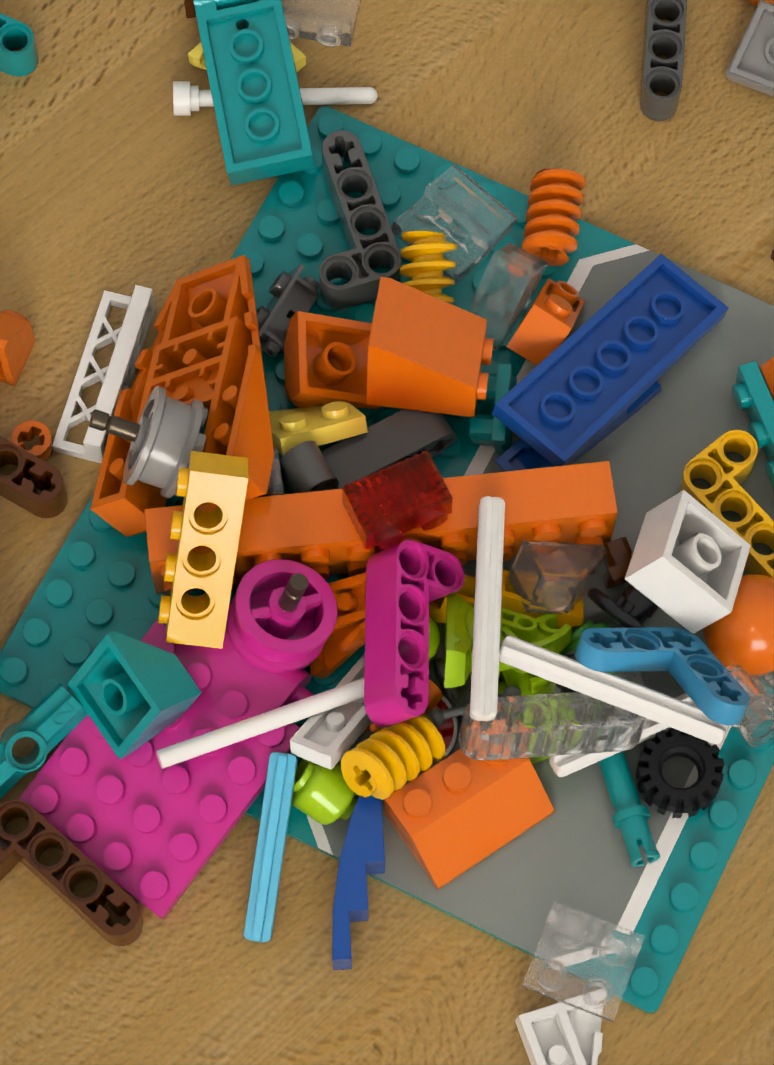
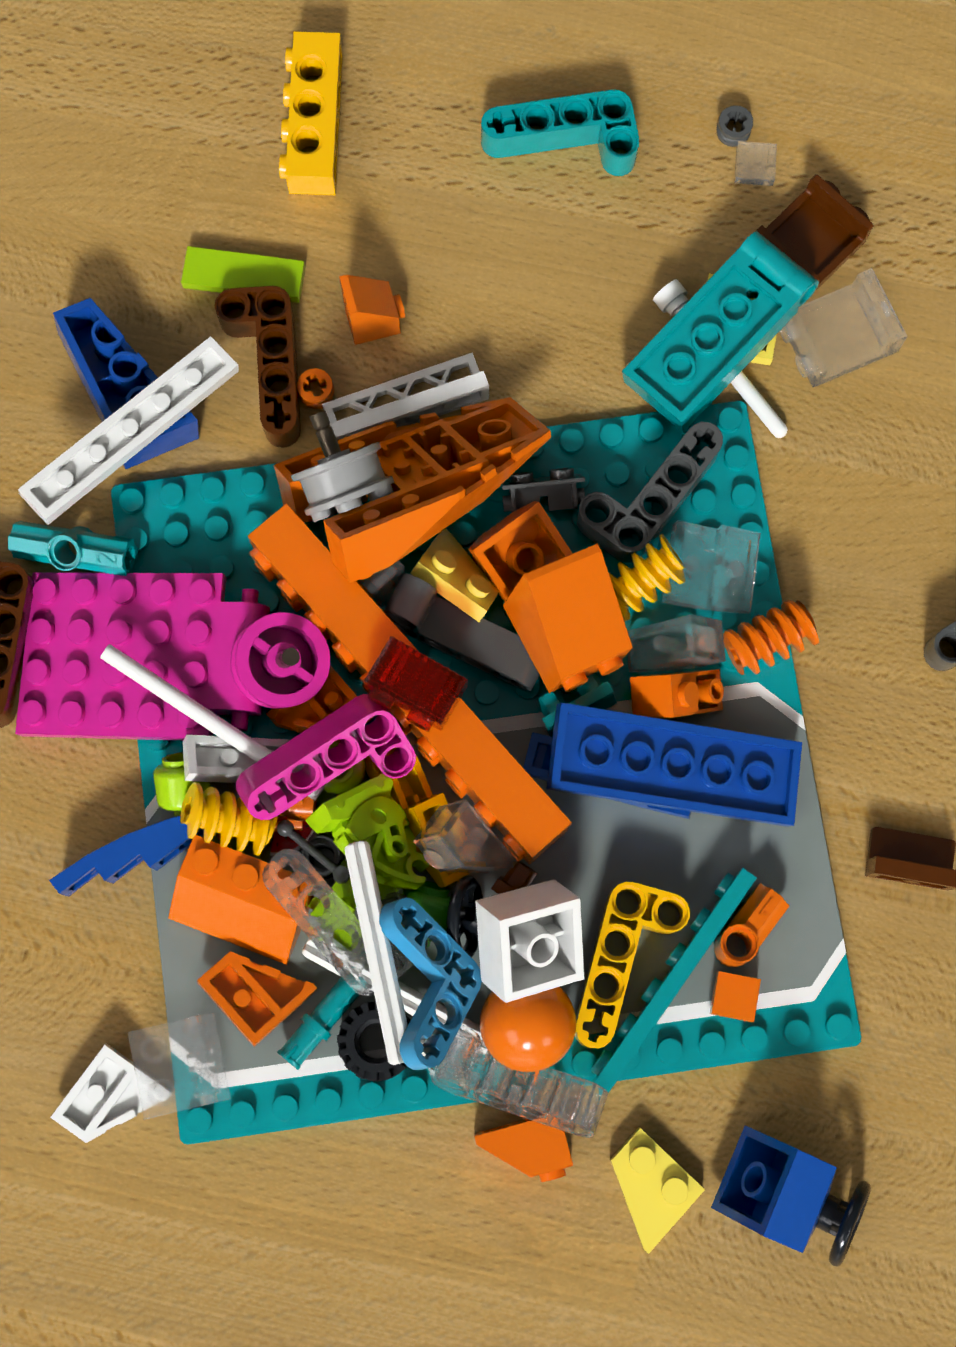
camera: 55 degrees right, 10 degrees up
(132, 691) = (149, 597): teal slope -> none
(204, 617) = (275, 567): yellow brick -> none
(270, 847) = (111, 775): medium azure axle -> none
(487, 609) = (375, 811): white axle -> none
(564, 854) = (254, 994): none -> orange wing

